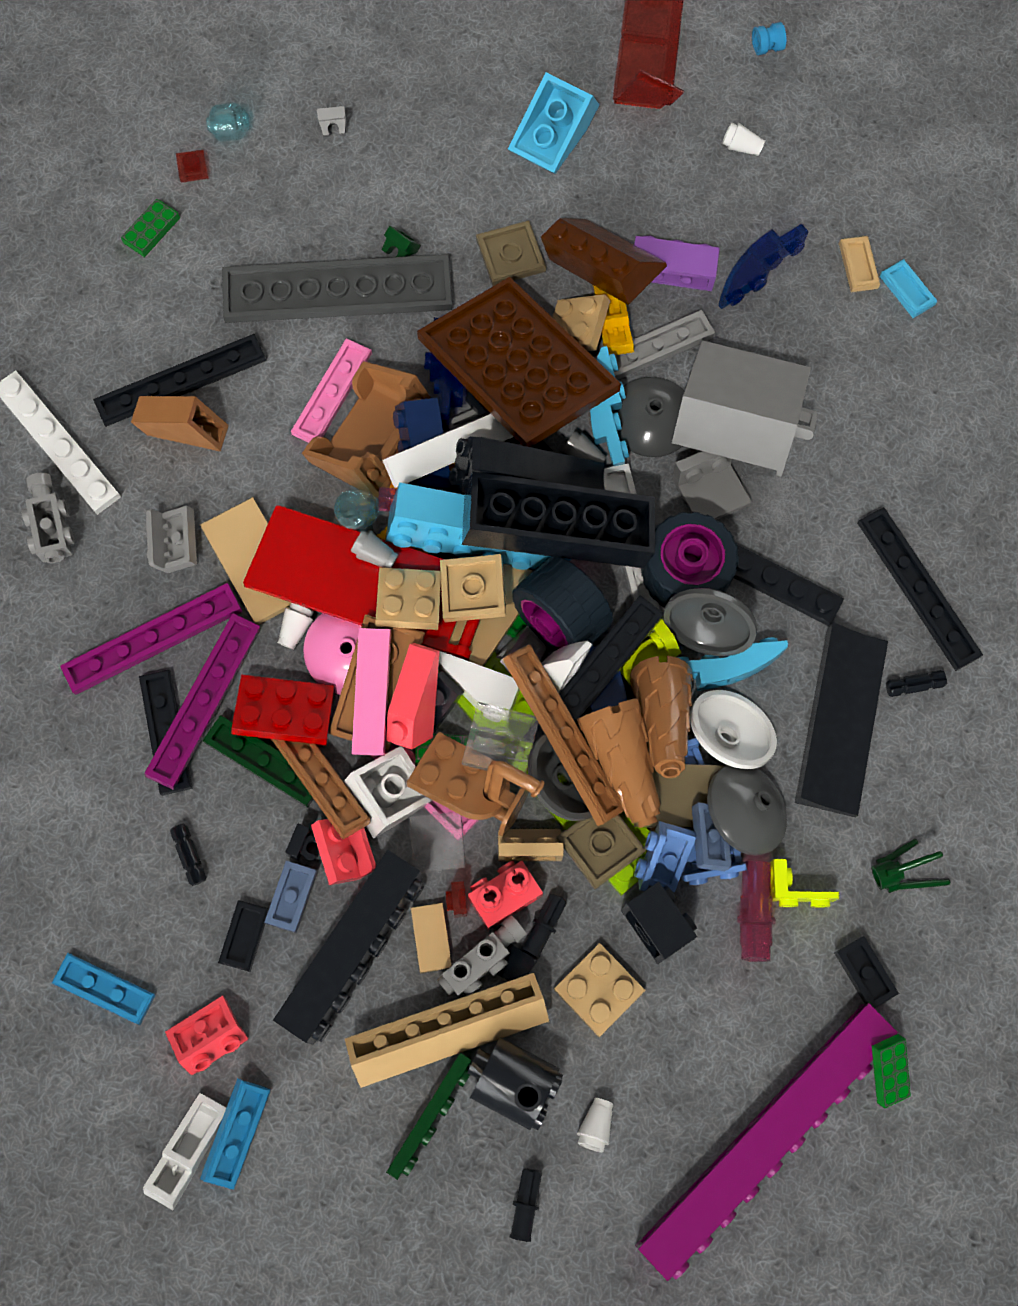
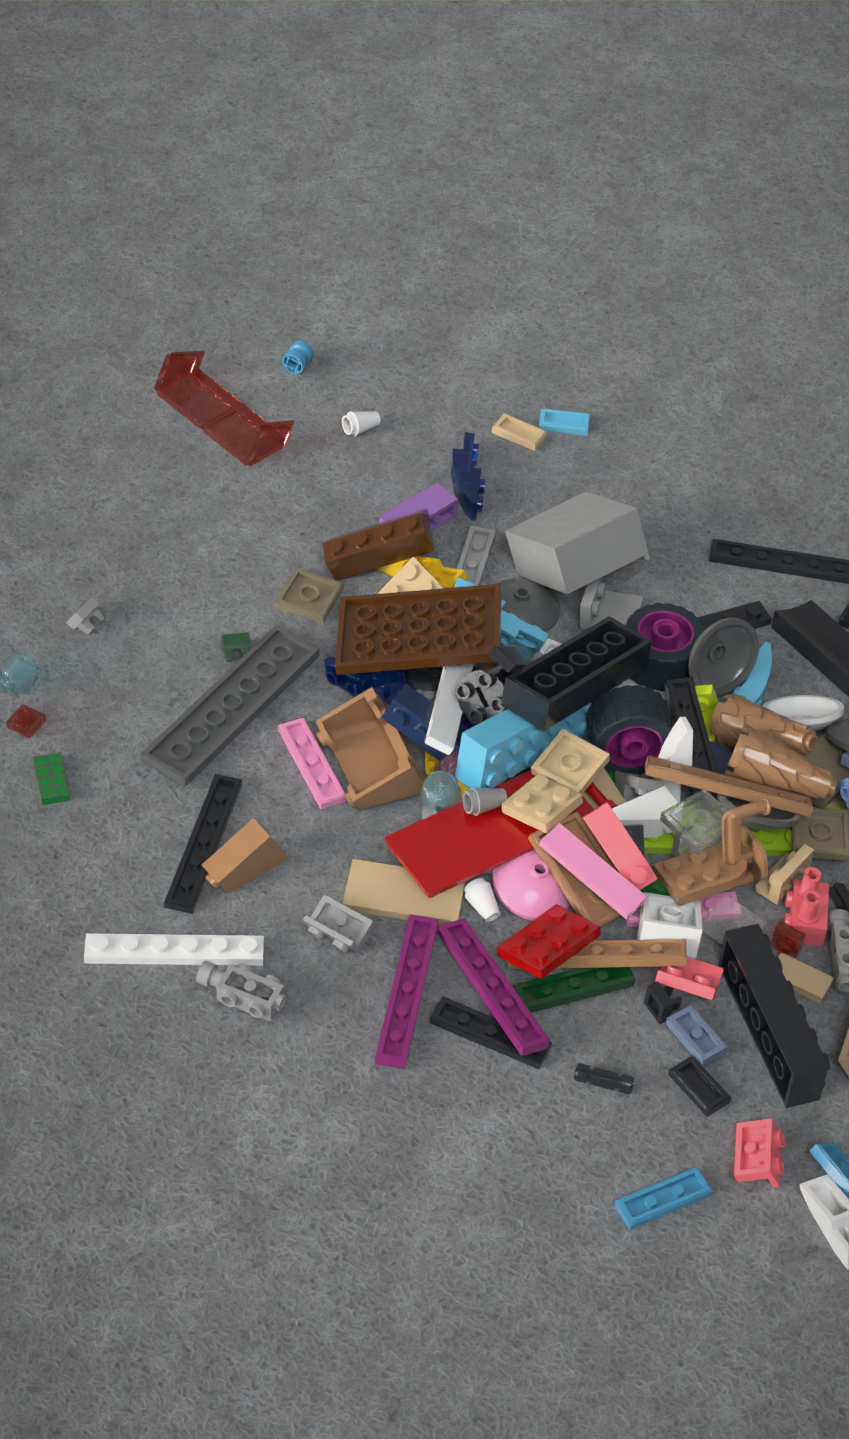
camera: 50 degrees left, 25 degrees down
(553, 123) = (235, 502): medium azure slope -> none

